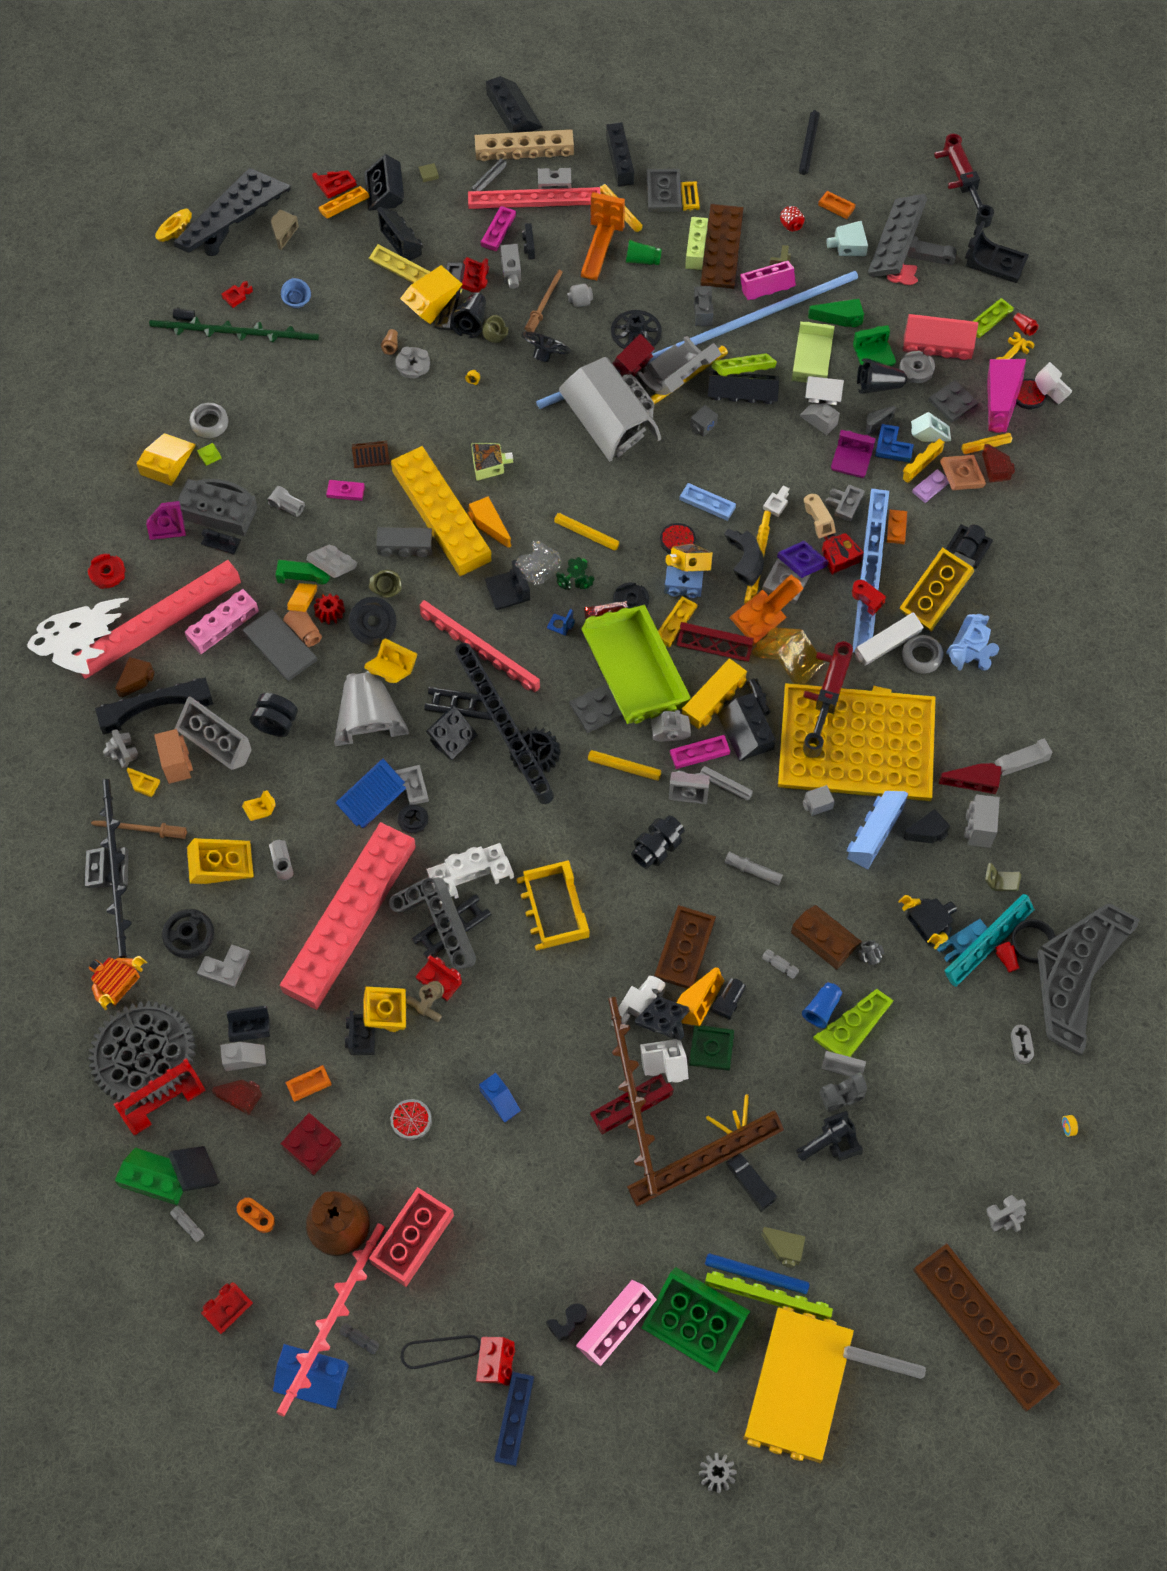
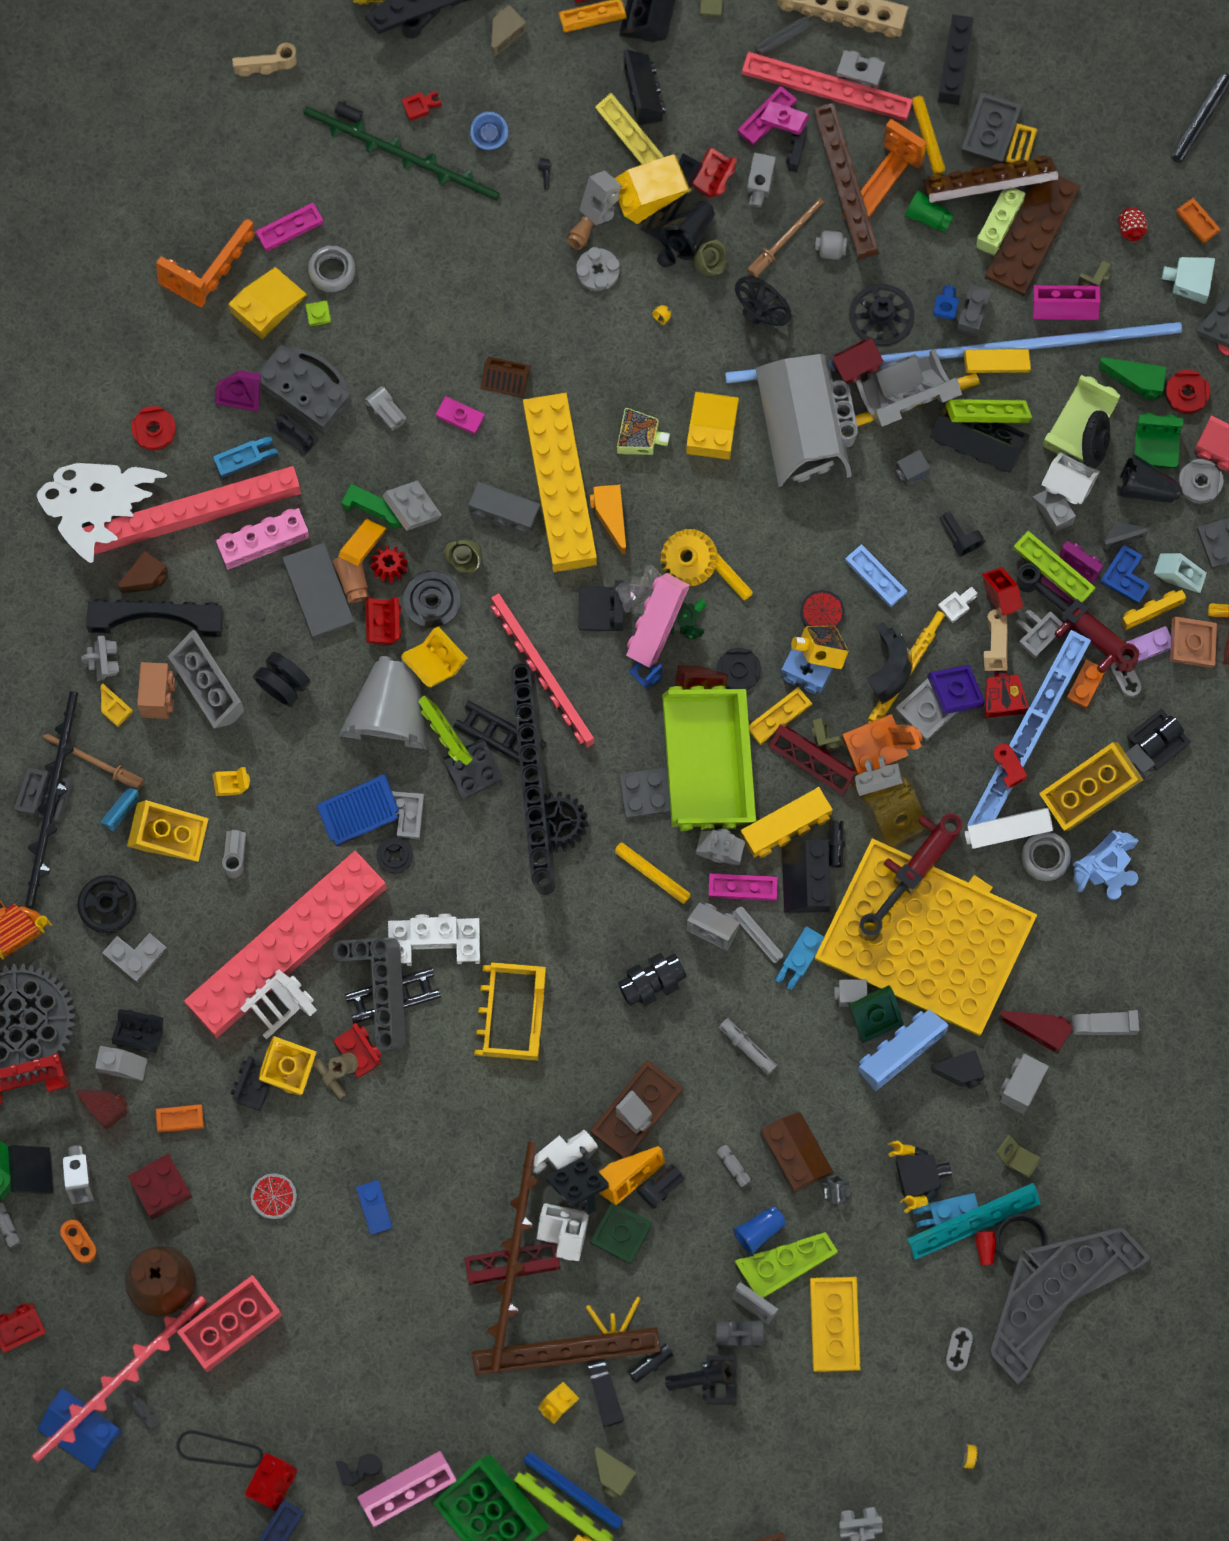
camera: 20 degrees right, 10 degrees up
(101, 460) = (194, 289): none -> orange bracket
(108, 300) = (266, 64): none -> tan plate
(165, 402) = (289, 227): none -> dark pink plate
(175, 857) = (120, 809): none -> dark azure slope
(186, 569) = (243, 457): none -> dark azure hinge
(237, 1160) = (78, 1176): none -> light grey torso
(339, 650) = (382, 621): none -> red bracket
(346, 307) = (545, 165): none -> black hand
(366, 950) = (290, 995): none -> white plate
(396, 310) = (605, 193): none -> light grey brick
(423, 711) = (442, 727): none -> lime plate
(461, 340) = (666, 258): none -> black hinge
(512, 222) = (784, 118): none -> dark pink plate
(542, 440) = (712, 425): none -> yellow slope
(556, 577) = (657, 619): none -> bright pink brick
(568, 540) = (703, 559): none -> yellow gear
(574, 251) = (846, 181): none -> reddish brown tile
(682, 308) = (946, 303): none -> blue bracket
(683, 214) = (990, 179): none -> reddish brown plate
(686, 946) = (634, 1113): none -> light grey slope
(712, 621) = (822, 736): none -> olive bracket
(715, 1204) = (558, 1402): none -> yellow bracket
(734, 333) = (997, 361): none -> yellow tile
(764, 460) = (962, 543): none -> black piece
(766, 787) = (801, 956): none -> dark azure hinge
(774, 635) = (878, 779): none -> light grey hinge
(778, 1144) = (650, 1363): none -> black pin
(808, 479) = (1002, 591): none -> red brick
(830, 358) = (1096, 437): none -> black wheel
(838, 454) = (1054, 567): none -> lime plate
(845, 808) = (876, 1013): none -> dark green plate
(879, 304) = (1196, 384): none -> red plate
(914, 1060) = (835, 1324): none -> yellow tile
(917, 495) = (1079, 619): none -> dark red piece
(923, 513) = (1122, 684): none -> light grey beam

